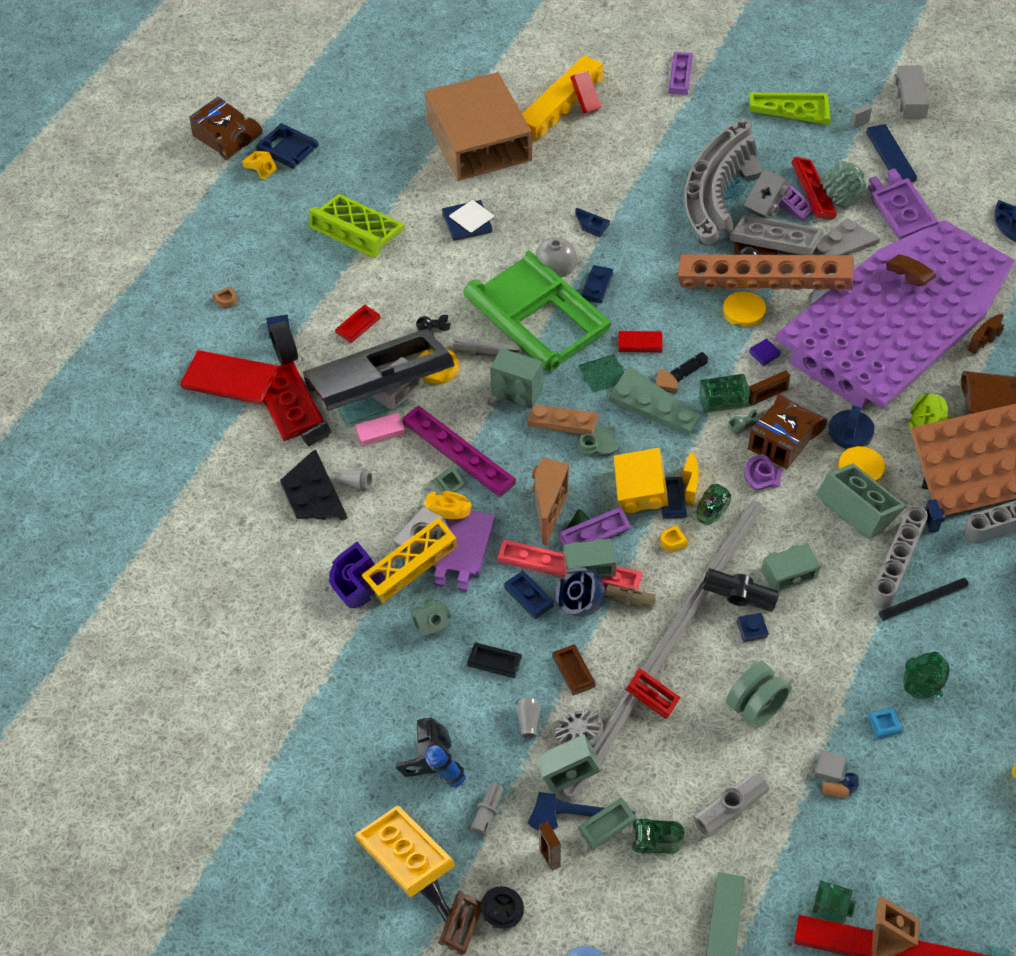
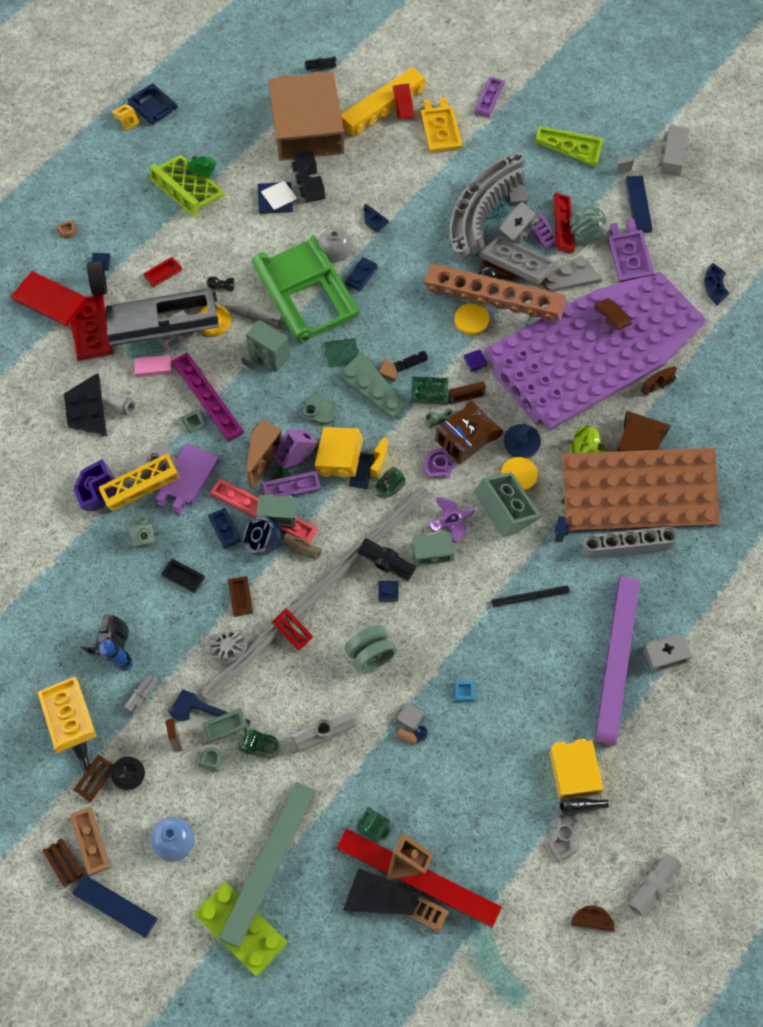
camera: 10 degrees right, 10 degrees up
(224, 127) = (105, 79): reddish brown piece -> none
(318, 432) = (102, 360): black pin -> none
(369, 199) = (202, 165): none -> green rock
(448, 505) = (184, 442): yellow tile -> none
(473, 70) = (320, 63): none -> black axle
(493, 182) = (311, 187): none -> black arch
(528, 716) = (193, 627): light grey cone -> none
(563, 419) = (296, 387): medium nougat plate -> none
(568, 763) = (209, 673): sand green brick -> none
(587, 485) = (295, 448): none -> medium lavender torso
(601, 868) = (211, 759): none -> sand green tile
(635, 112) = (440, 127): none -> yellow tile
(640, 341) = (379, 331): red tile -> none
(673, 539) = (350, 505): yellow tile -> none
(799, 530) = (451, 518): none -> medium lavender animal
(899, 557) = (526, 550): light grey beam -> none
(926, 675) = (506, 661): clear green plate -> none

